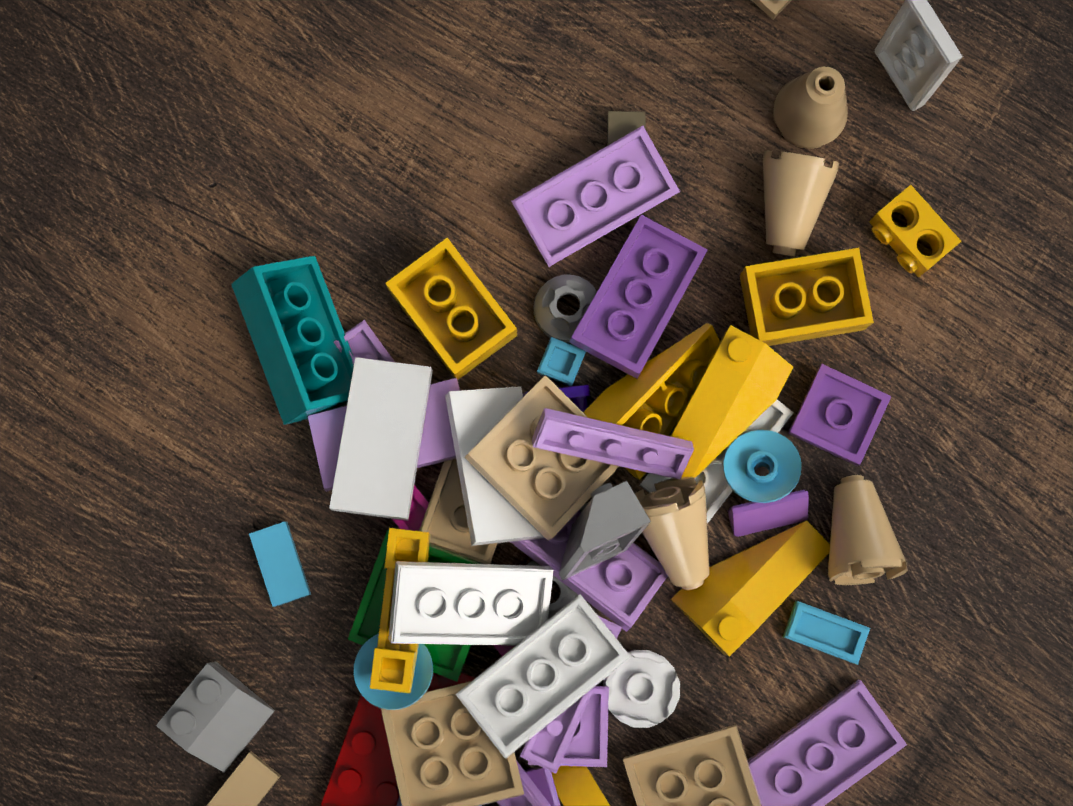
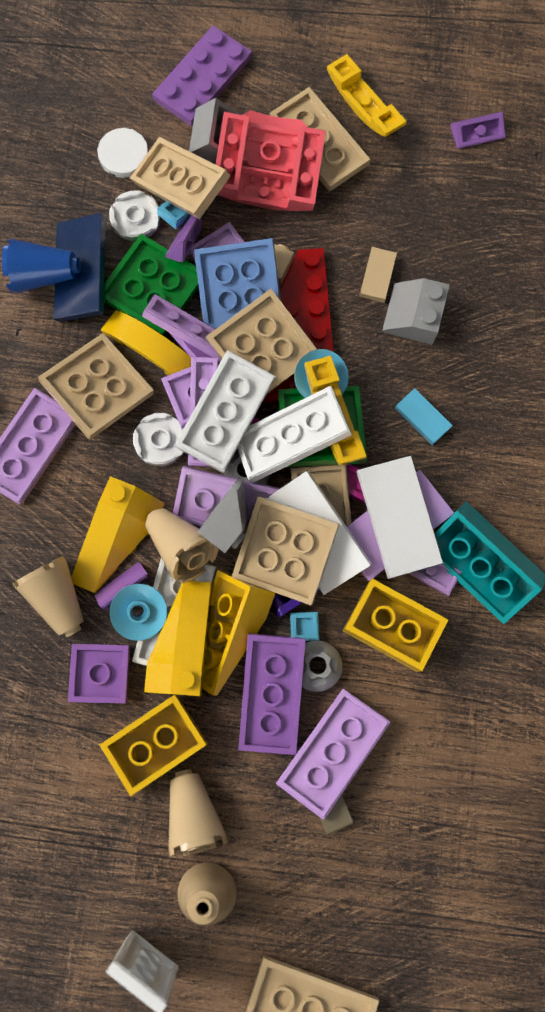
camera: 155 degrees right, 5 degrees down
(612, 444) = (245, 577): lavender tile -> none
(826, 632) = (53, 525): medium azure tile -> none
(922, 224) = (92, 840): yellow brick -> none

